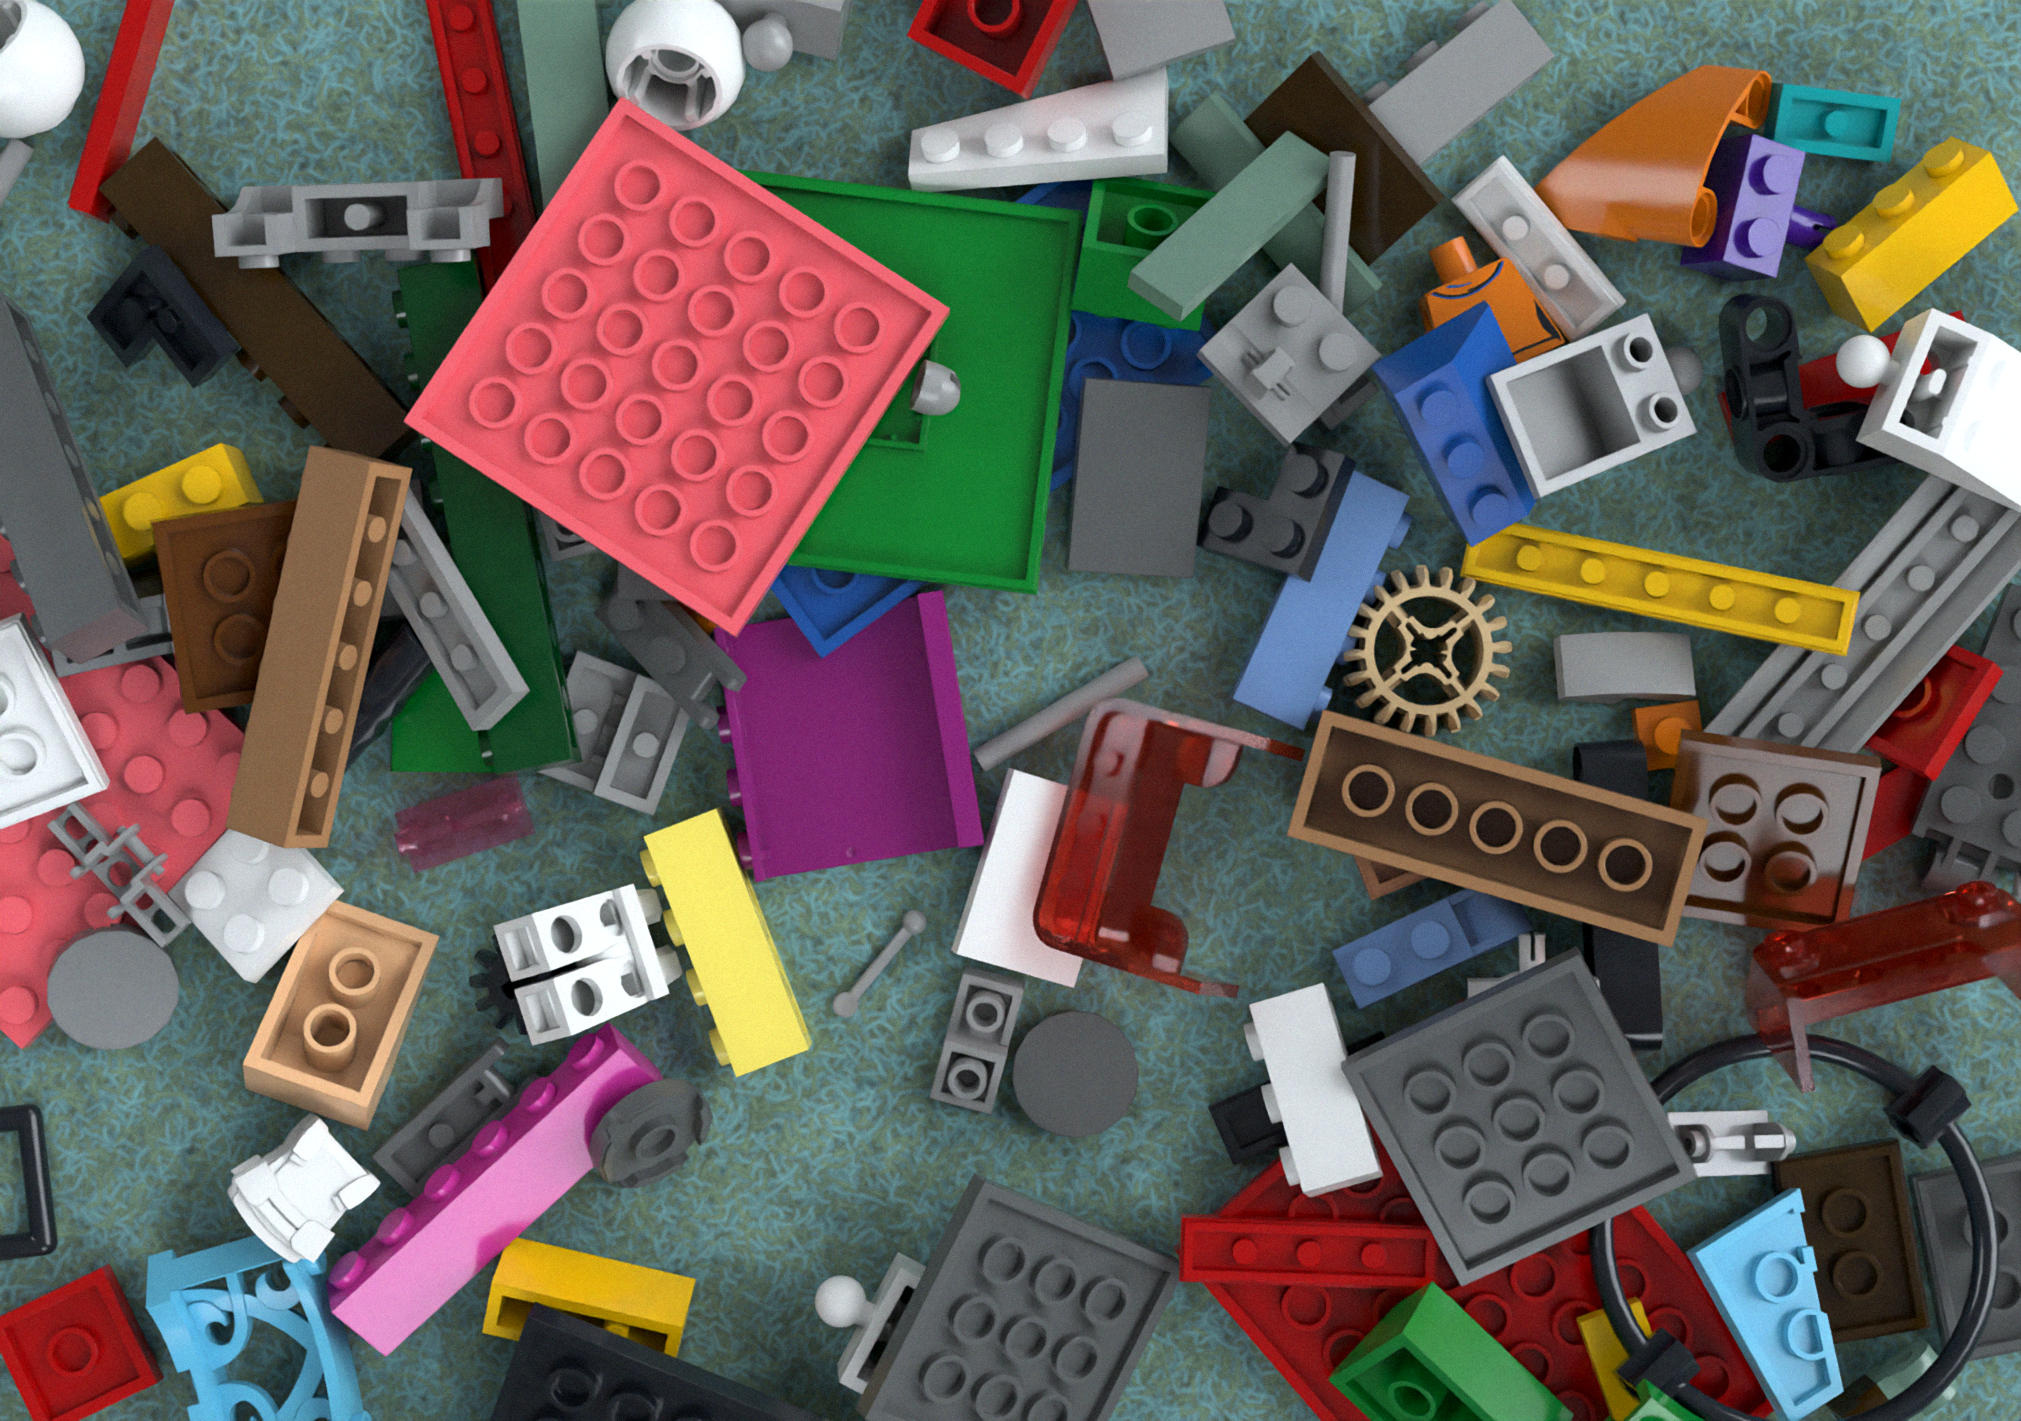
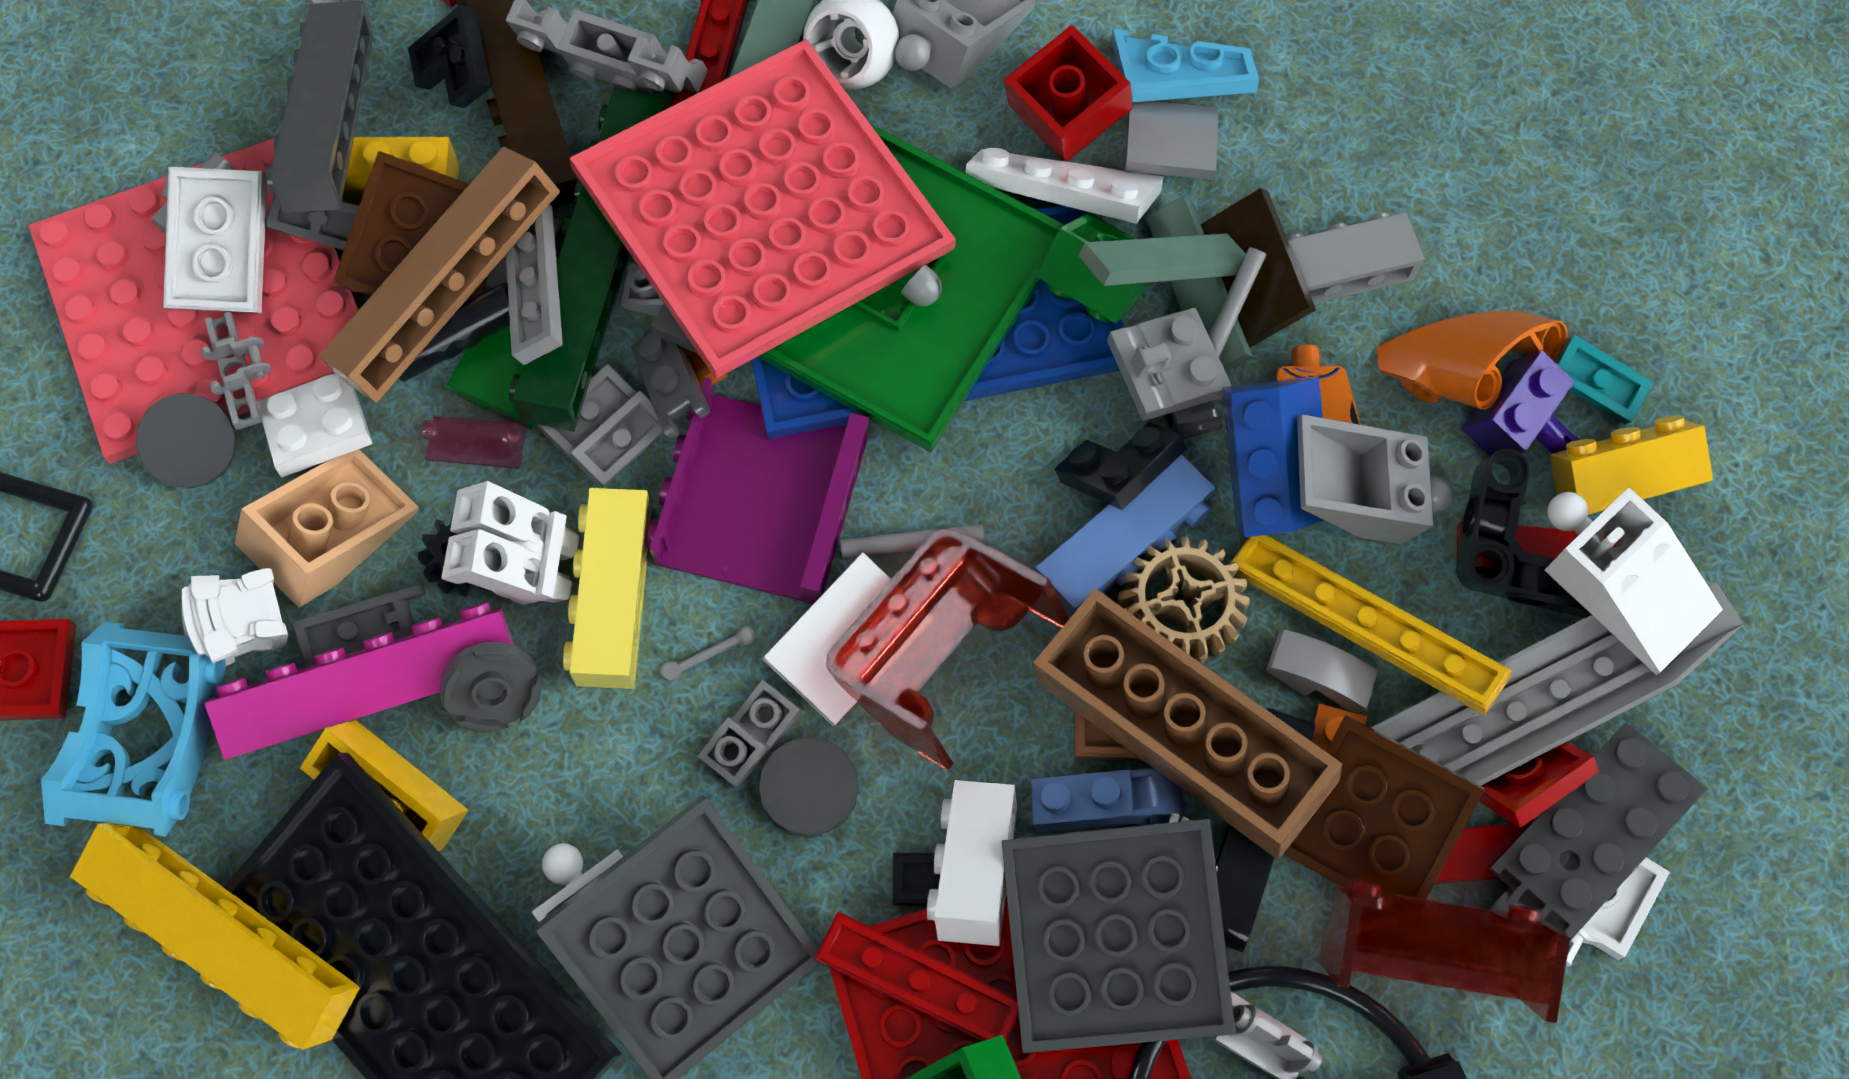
camera: 30 degrees right, 20 degrees down
(1137, 477) = (1033, 406): dark grey tile -> none
(1540, 248) = (1374, 391): white tile -> none

